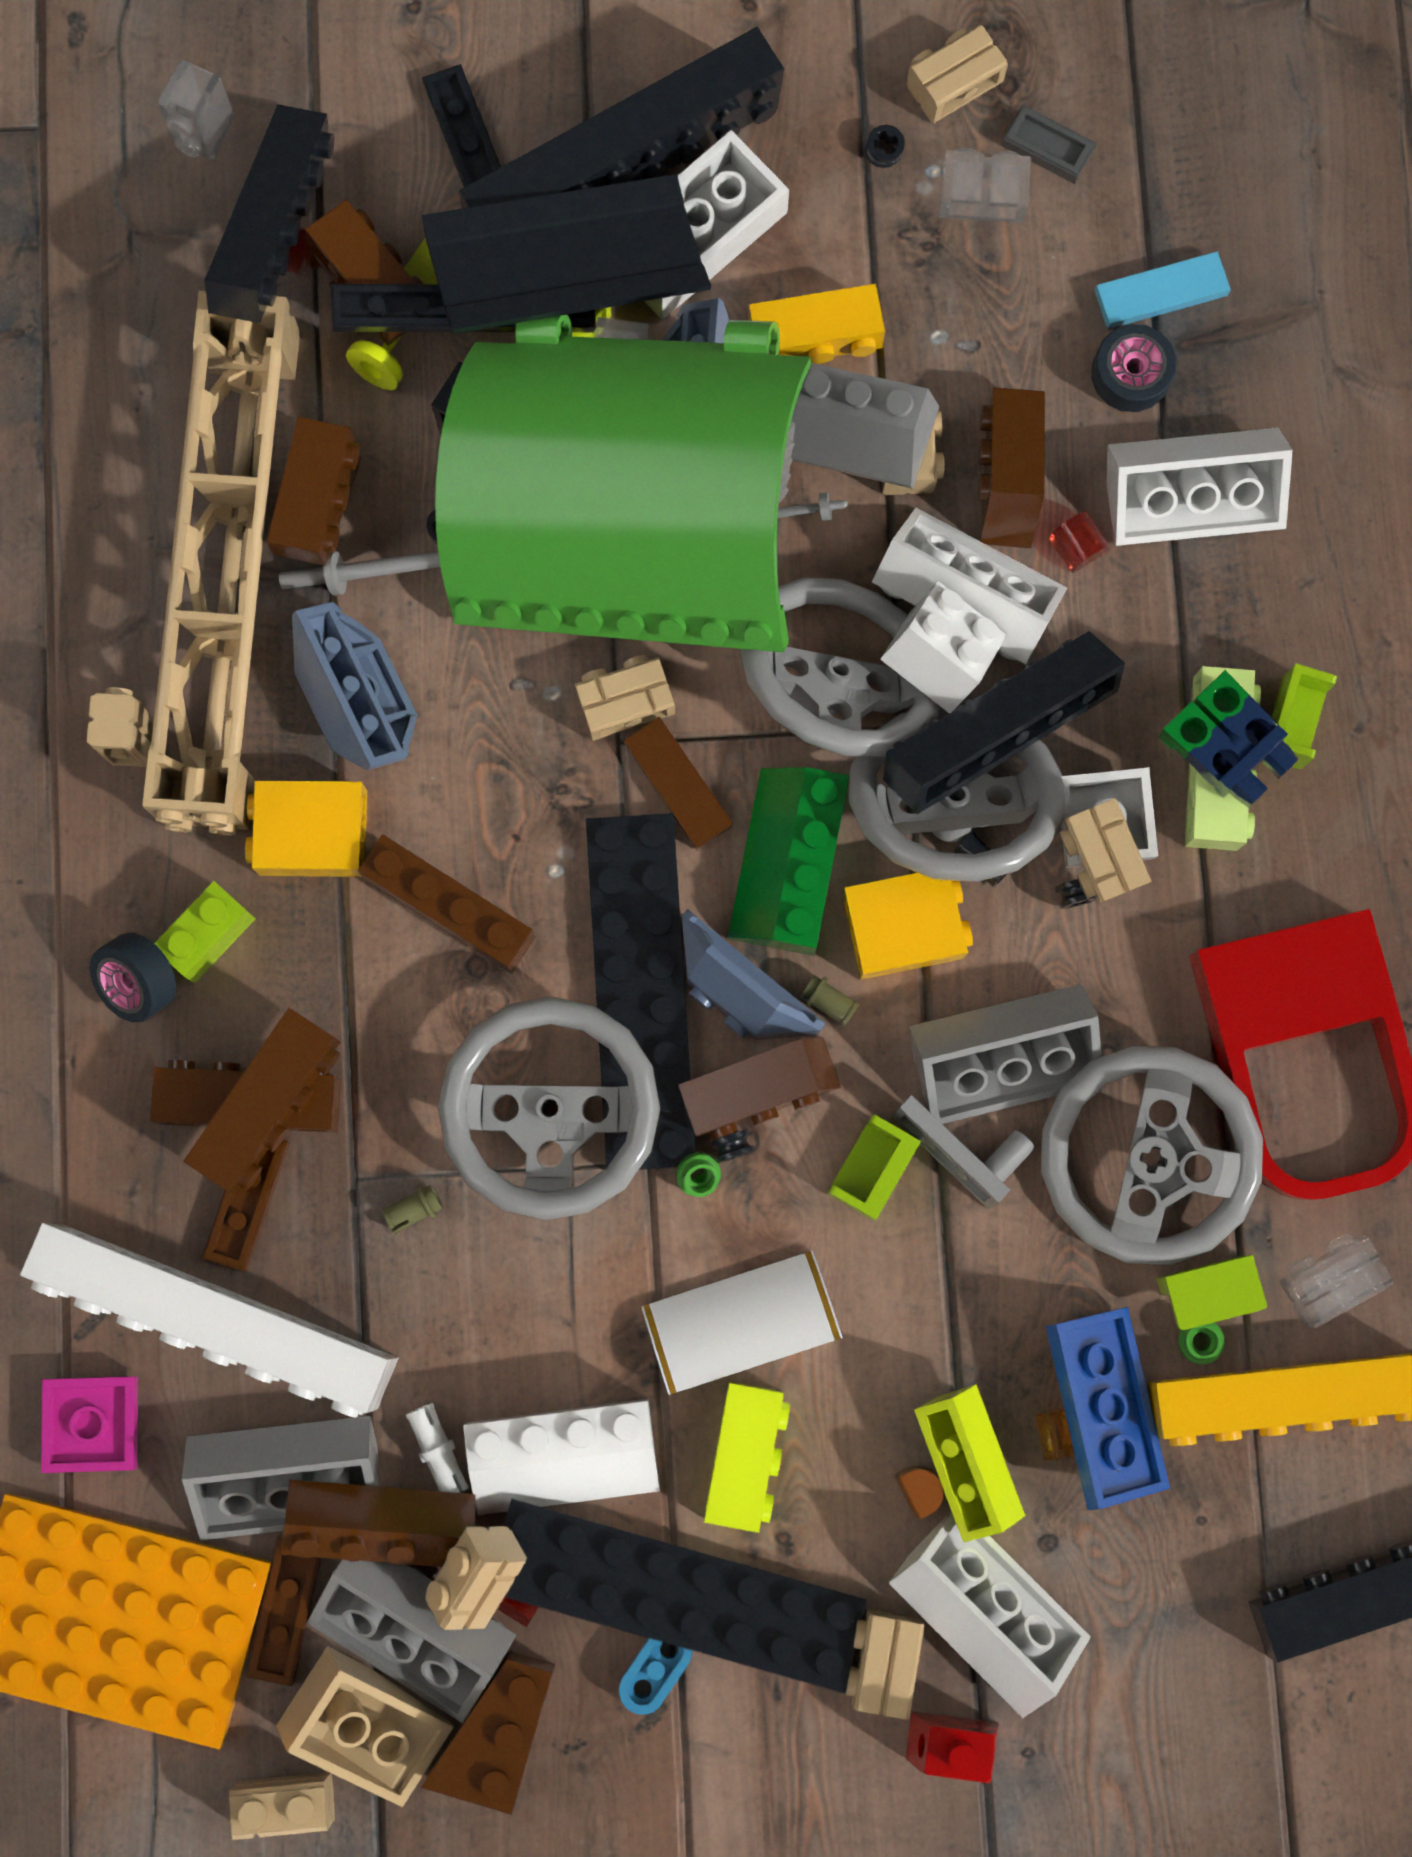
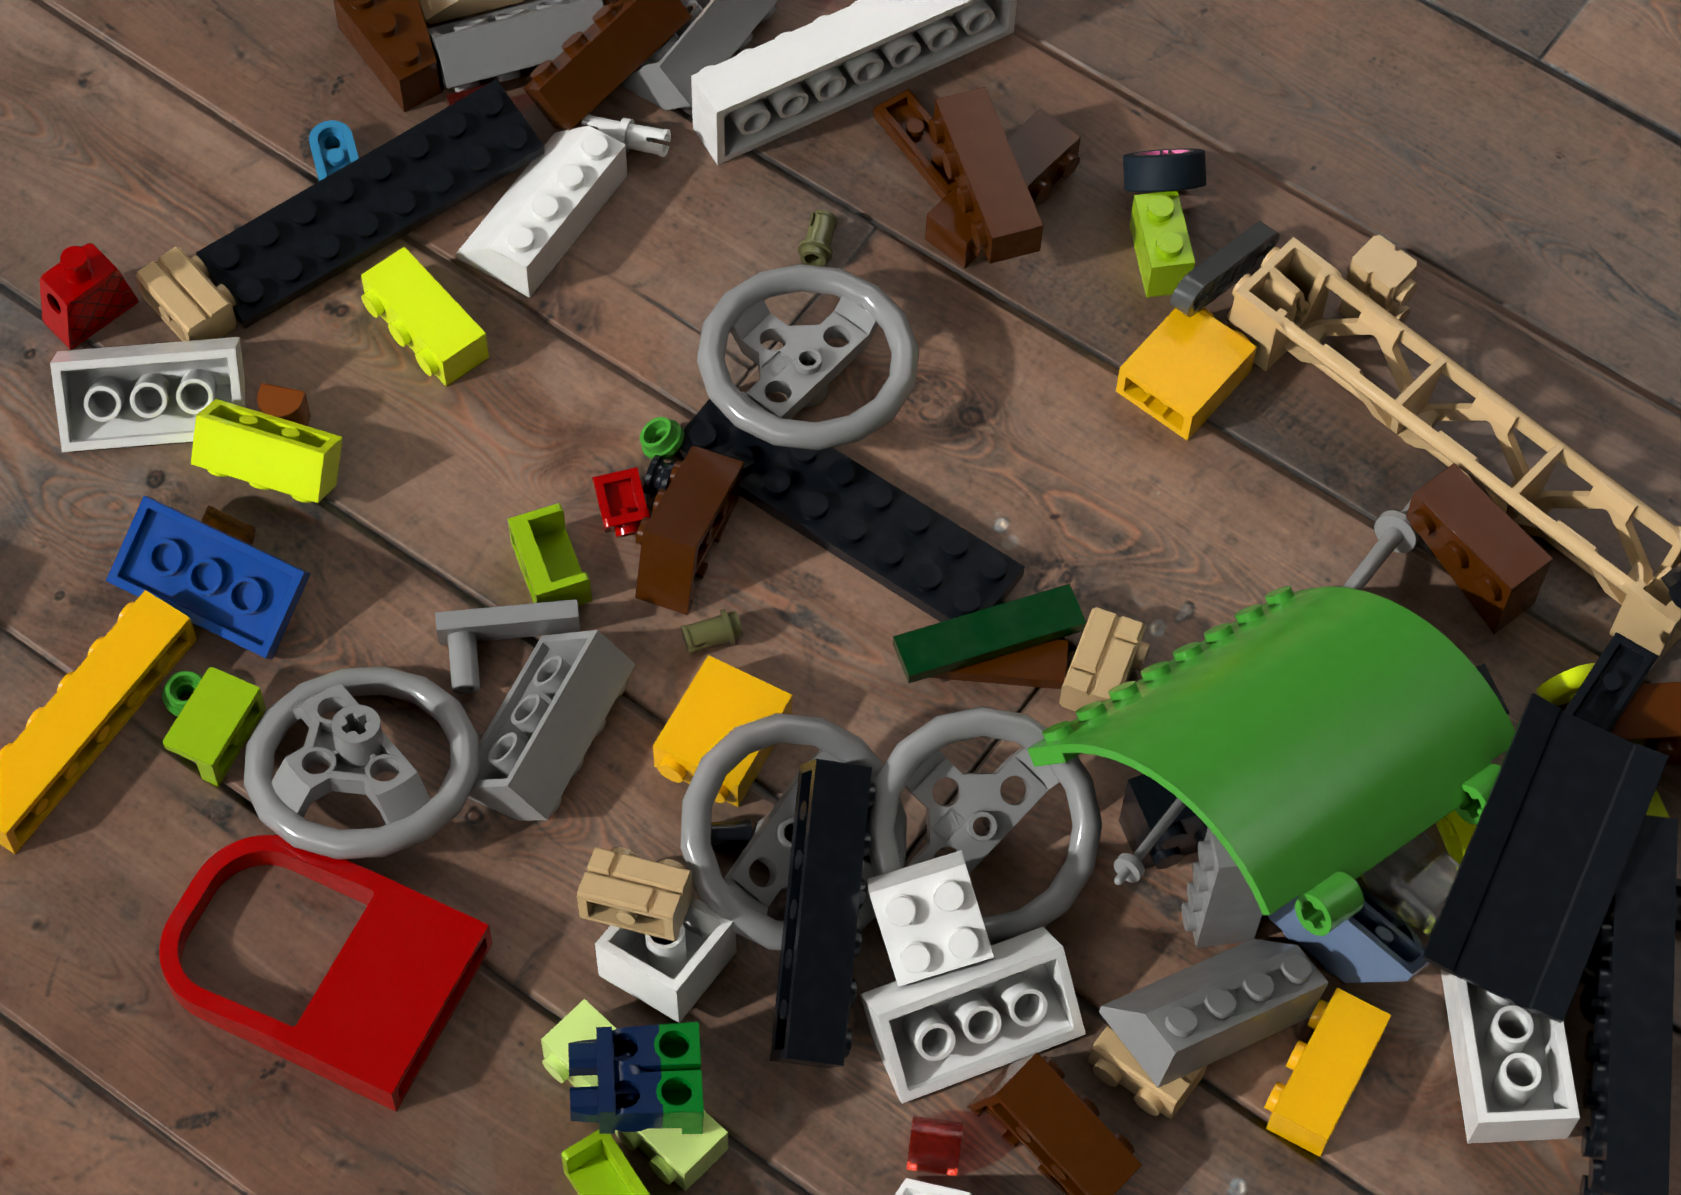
camera: 130 degrees right, 20 degrees down
(198, 857) = (1223, 269): none -> dark grey beam
(351, 687) = (1278, 474): sand blue wedge -> none
(447, 903) = (1038, 416): reddish brown brick -> none
(475, 1578) = (511, 70): tan brick -> none
(668, 795) = (989, 633): none -> dark green tile
(740, 988) = (784, 572): sand blue wedge -> none
(741, 1322) = (521, 389): white slope -> none
(781, 1154) = (621, 501): none -> red bracket
(788, 858) = (843, 676): green slope -> none
(1336, 1280) = (129, 825): clear brick -> none

